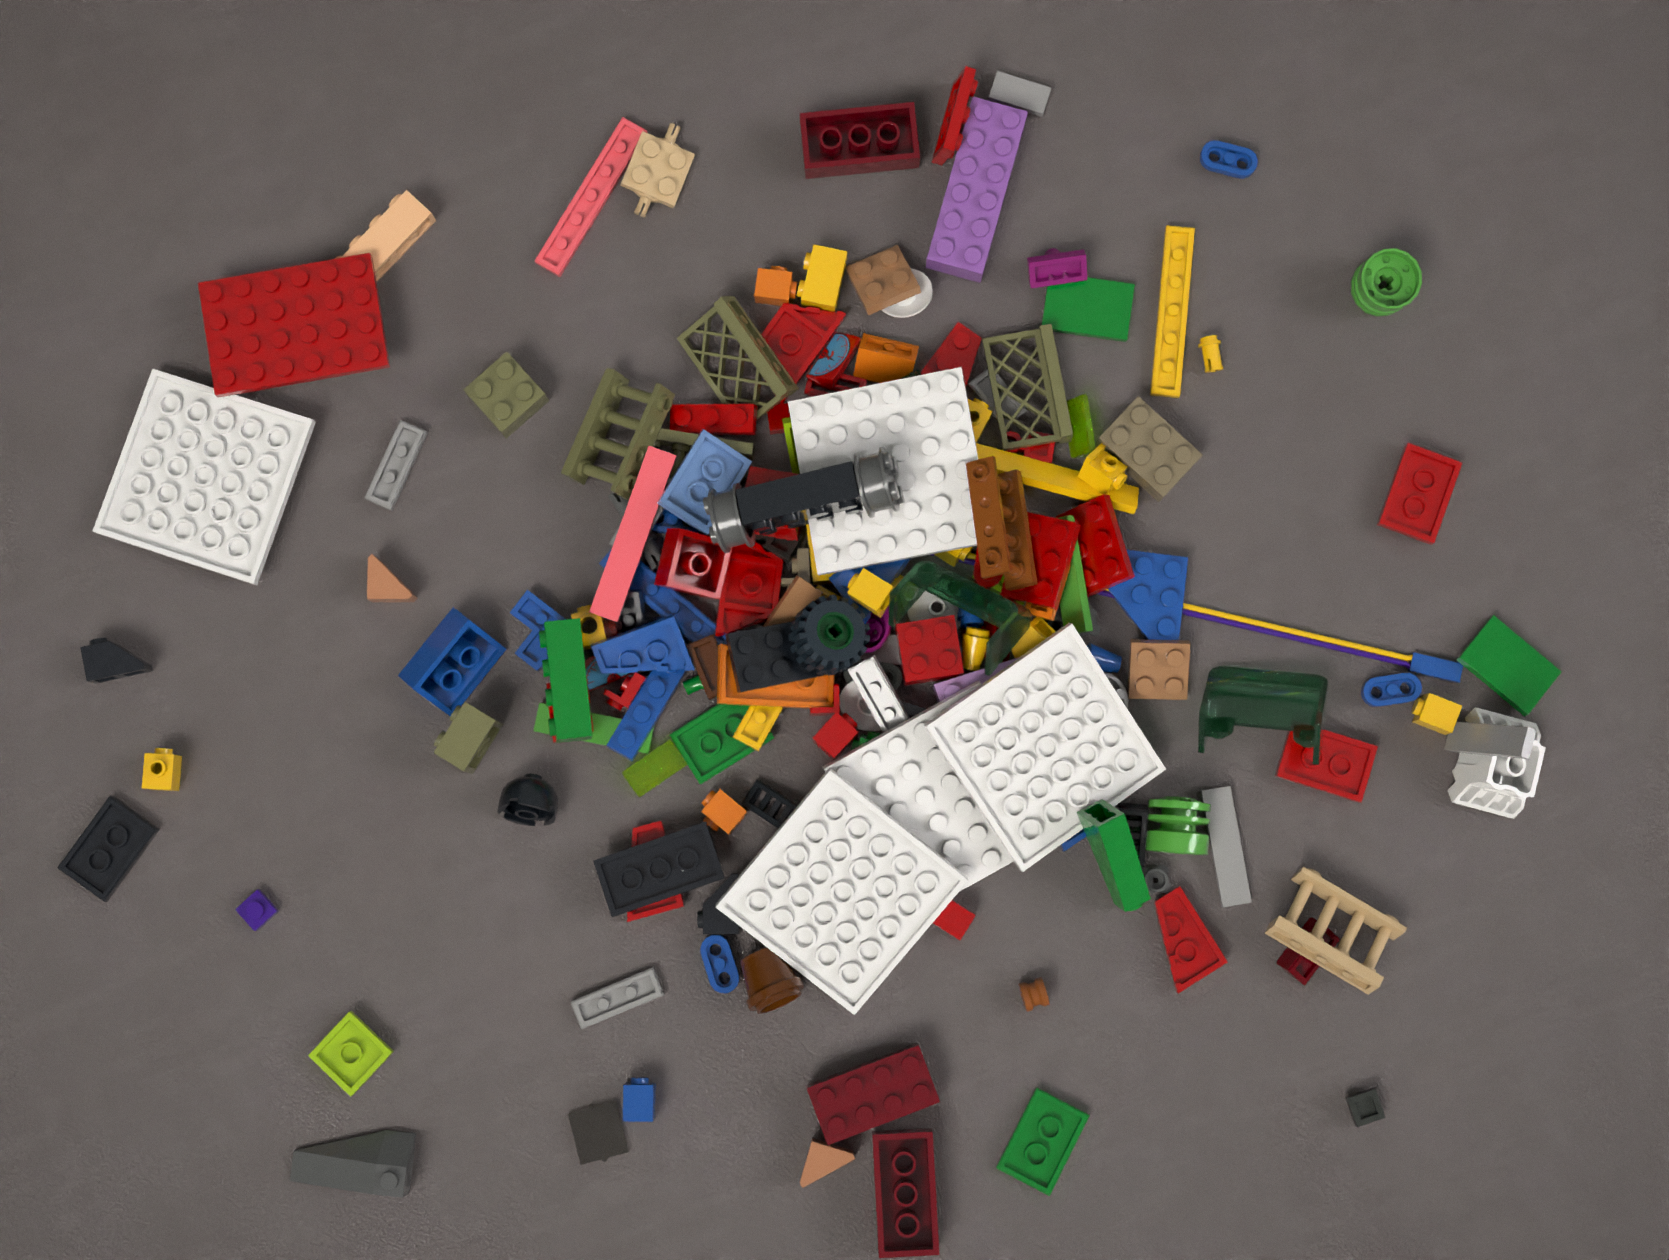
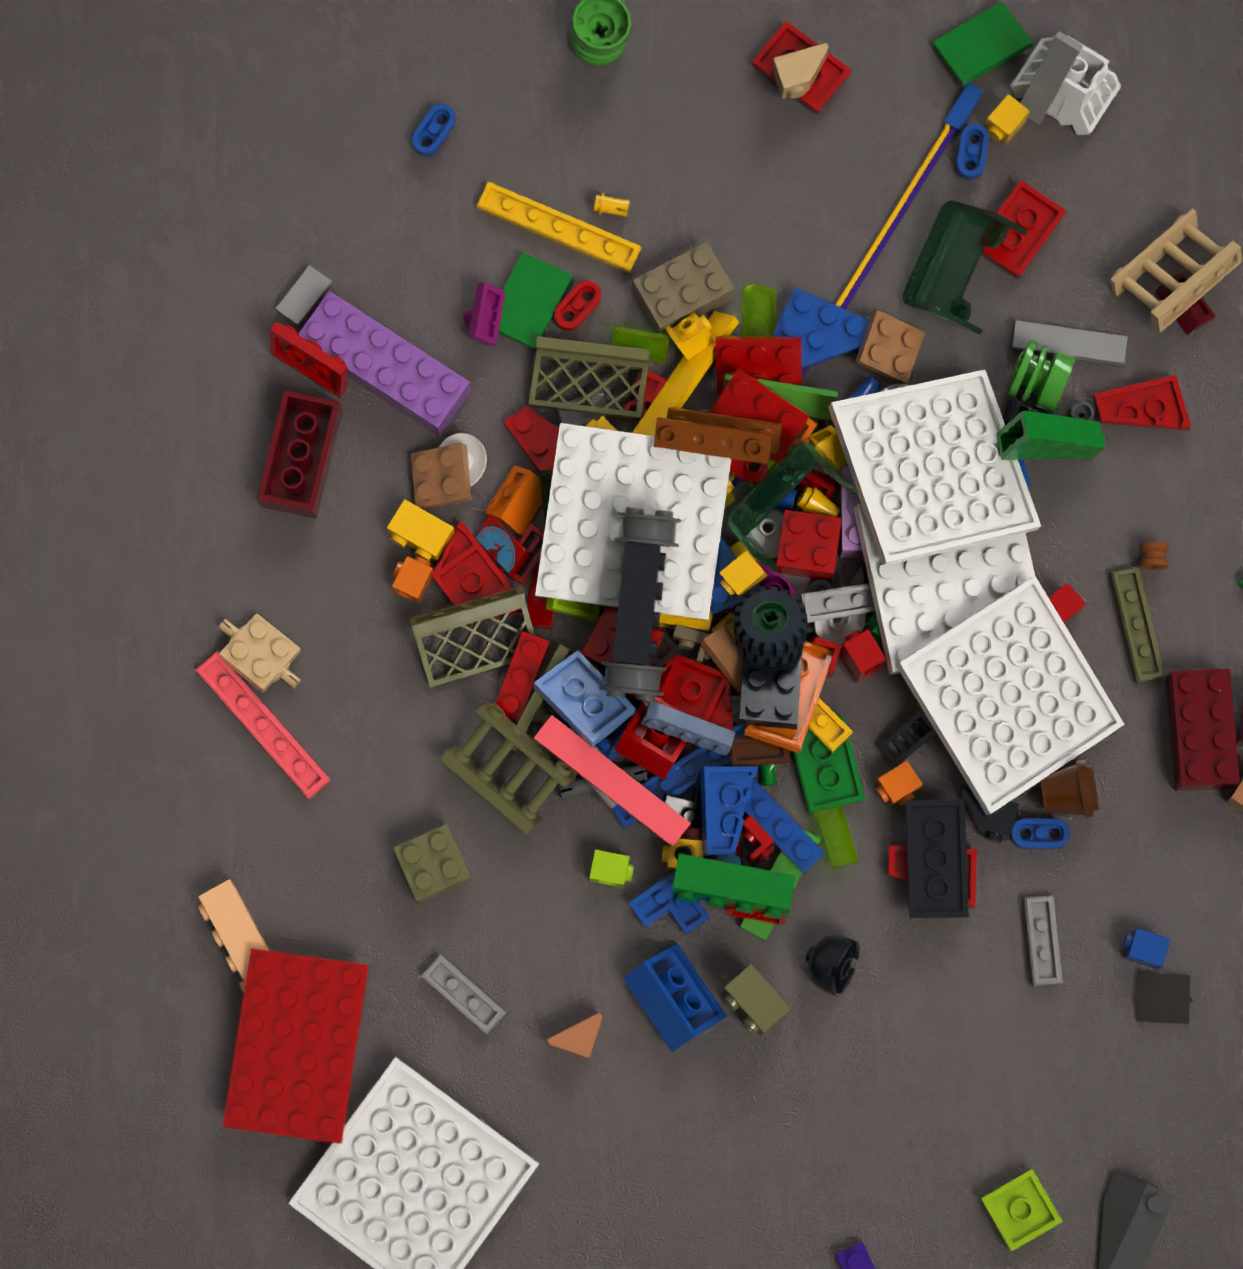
camera: 75 degrees left, 5 degrees down
(554, 563) = (611, 869): none -> lime brick
(706, 589) = (688, 728): none -> sand blue piece
(960, 999) = (1137, 625): none -> olive tile
(1099, 352) = (576, 306): none -> red plate
(1152, 531) = (758, 311): none -> clear neon green slope
(1412, 490) = (798, 70): none -> tan slope

